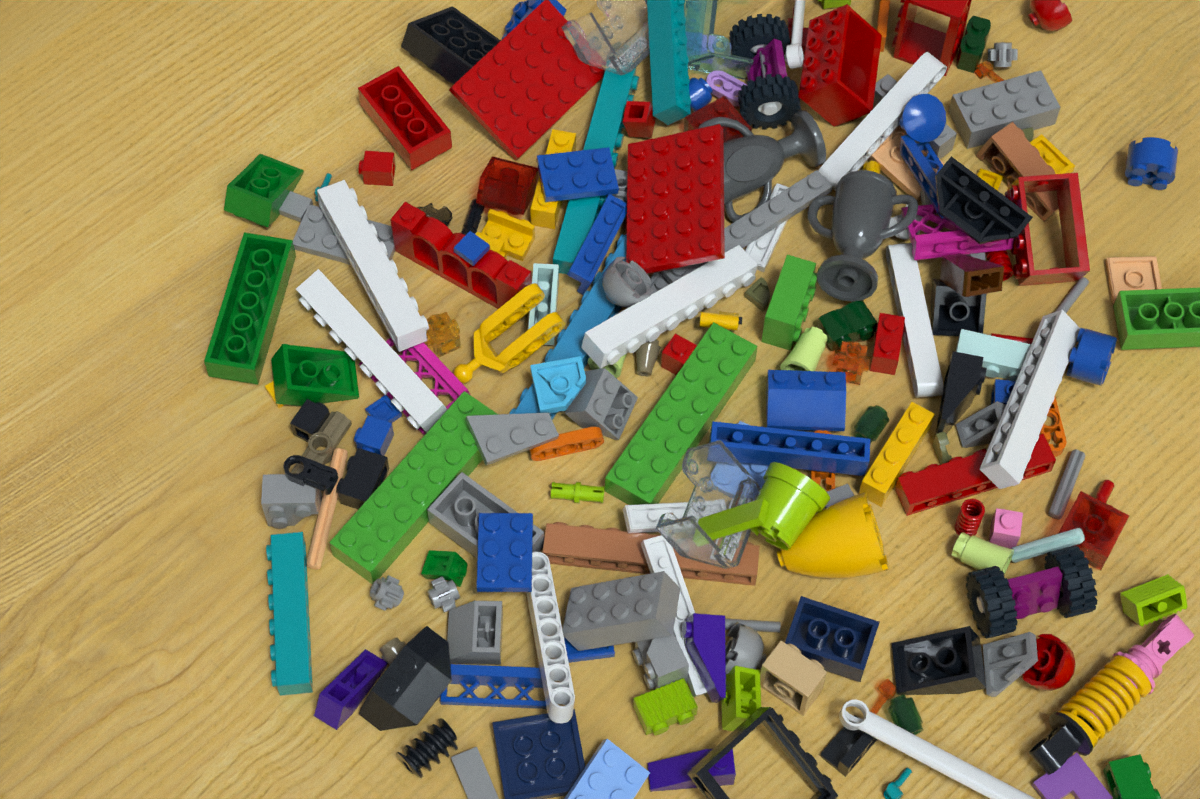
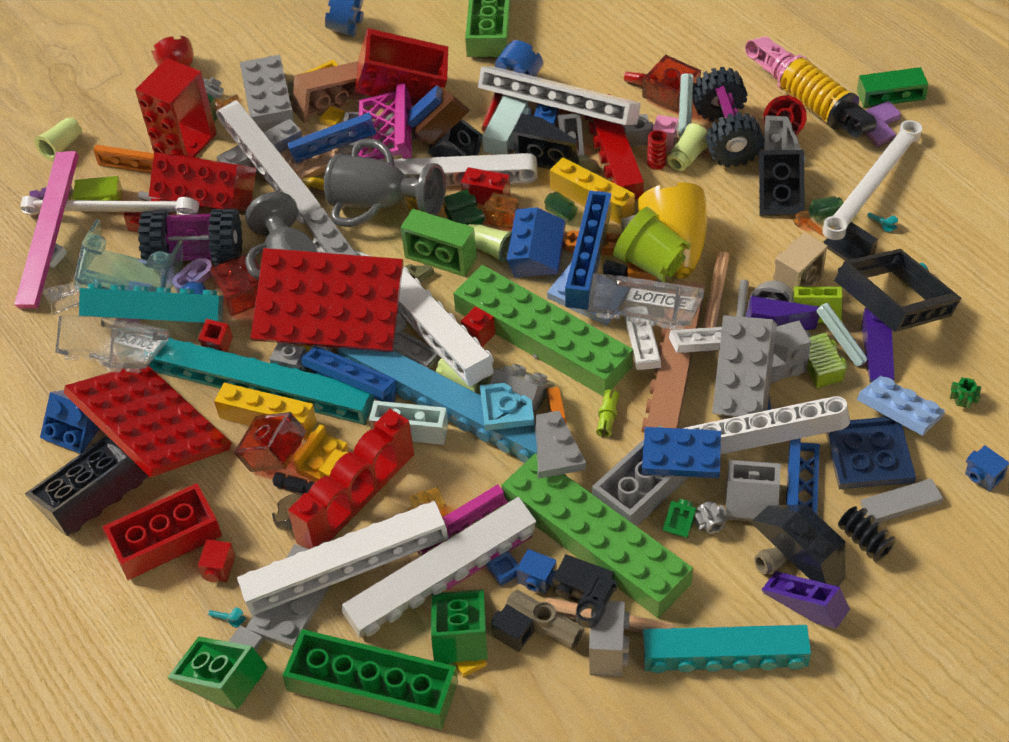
camera: 80 degrees left, 10 degrees down
(386, 593) = (713, 559): light grey gear -> none
(471, 248) = (357, 451): blue tile -> none
(502, 320) = (456, 471): yellow piece -> none
(577, 174) = (276, 379): blue plate -> none
(626, 283) = (410, 345): light grey cylinder -> none
(695, 723) = (842, 334): none -> light aqua axle
(724, 319) = (445, 292): yellow piece -> none
(735, 519) = (666, 278): lime tile -> none
(747, 594) = (716, 290): none -> light nougat axle
(833, 637) = (760, 241): dark blue brick -> none
(923, 118) = (277, 127): blue dish -> none
(975, 255) = (425, 106): none -> blue tile
(976, 205) = (386, 90): black wedge -> none
(1013, 492) = (638, 133): none -> light grey brick
(1066, 484) = (646, 105): light grey axle -> none
(1073, 295) = (467, 86): light grey bar -> none
(1132, 274) = (448, 36): light nougat tile -> none
(1154, 600) = (731, 54): lime brick -> none

